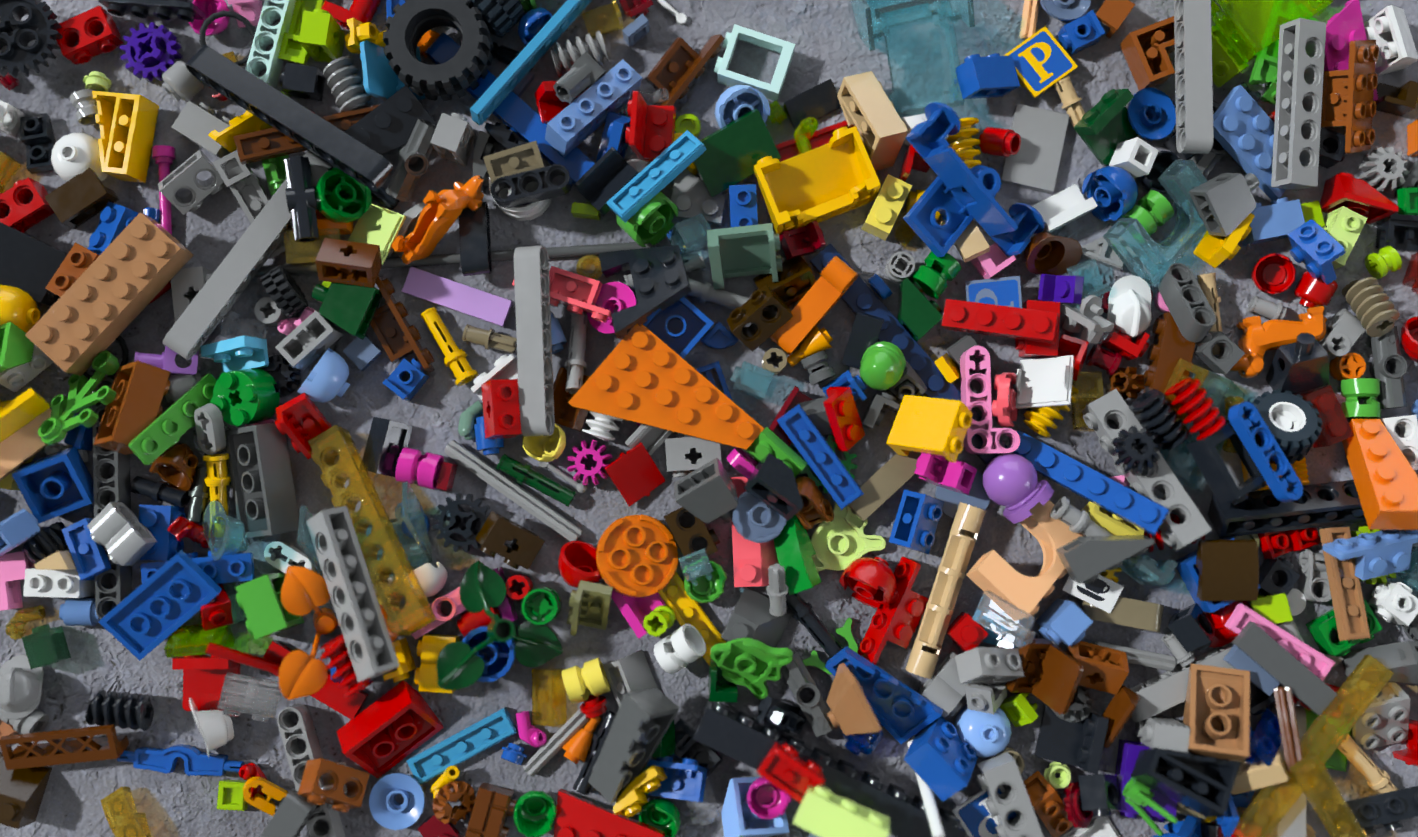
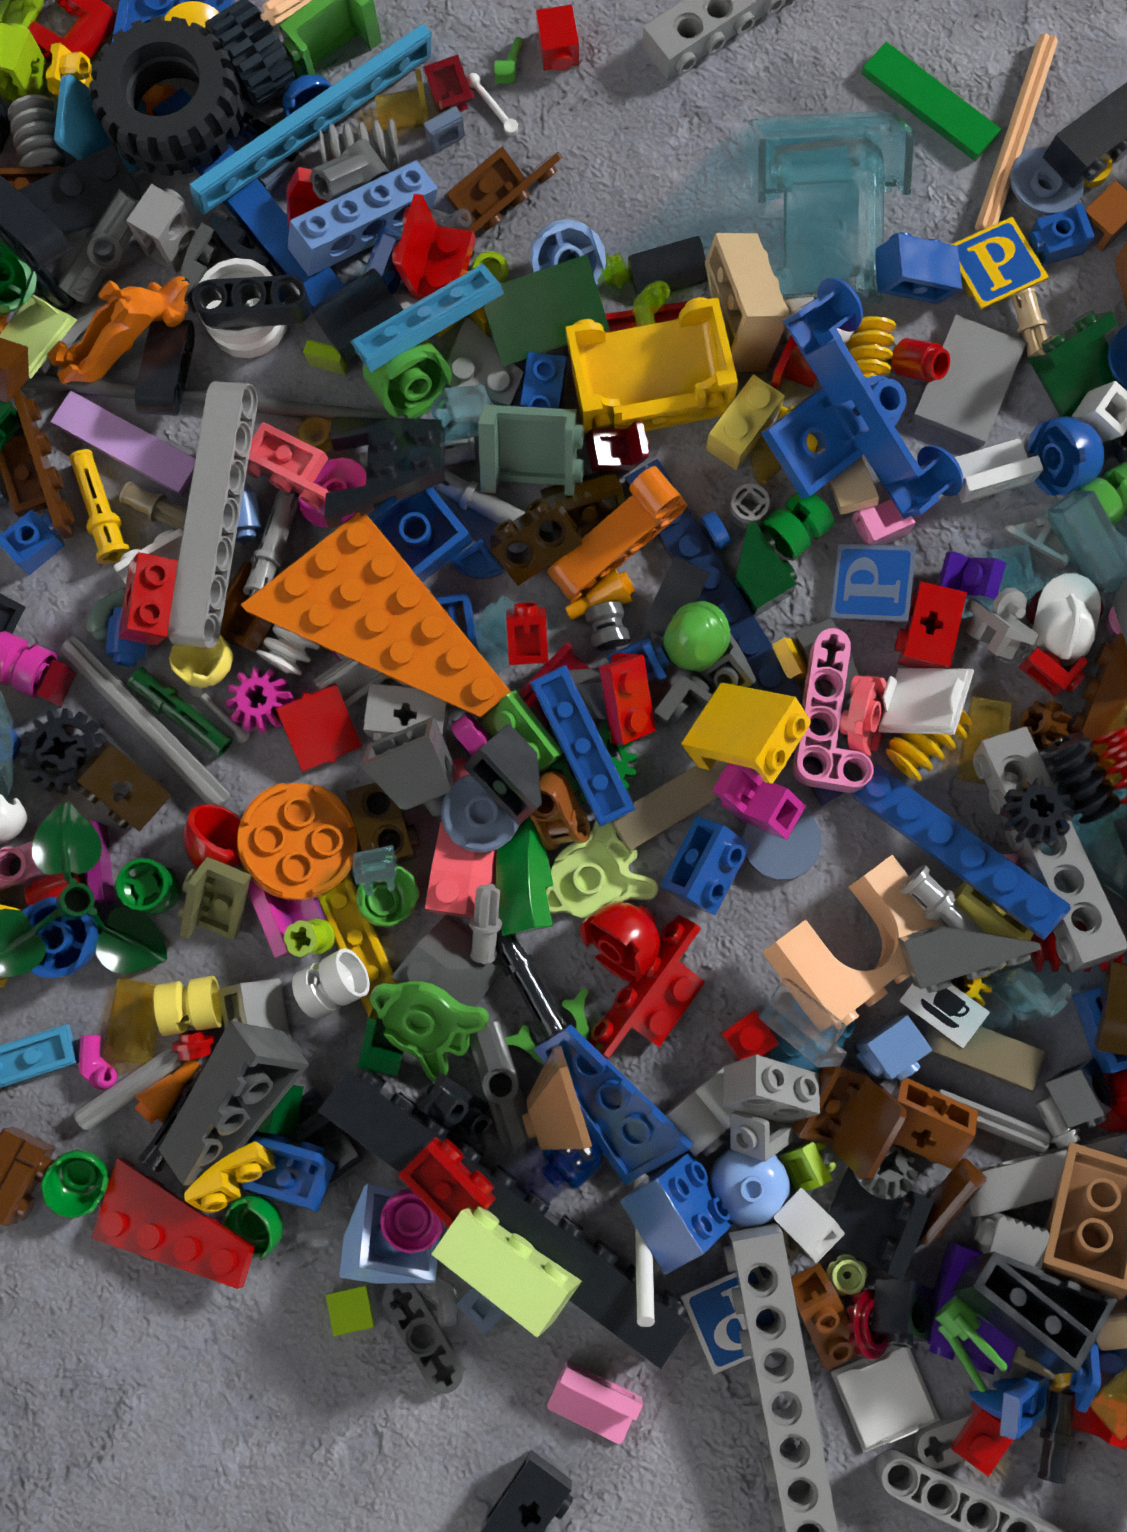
camera: 15 degrees right, 5 degrees down
(510, 583) = (113, 848): red bush -> none
(513, 753) = (65, 1092): blue plate -> none
(514, 160) = (236, 261): dark tan panel -> none
(730, 78) = (644, 195): light aqua window -> none
(767, 386) = (527, 634): none -> red bracket
(779, 354) = (552, 594): dark tan bush -> none
(945, 590) = (729, 971): tan piece -> none
(1000, 321) = (876, 602): red brick -> none
(1014, 483) = (854, 834): medium lavender tile -> none
(1028, 749) = (809, 1225): none -> white panel
(1051, 254) = (967, 525): reddish brown piece -> none
(1073, 346) = (980, 659): red panel -> none
(1103, 359) = (1017, 686): dark red bush -> none

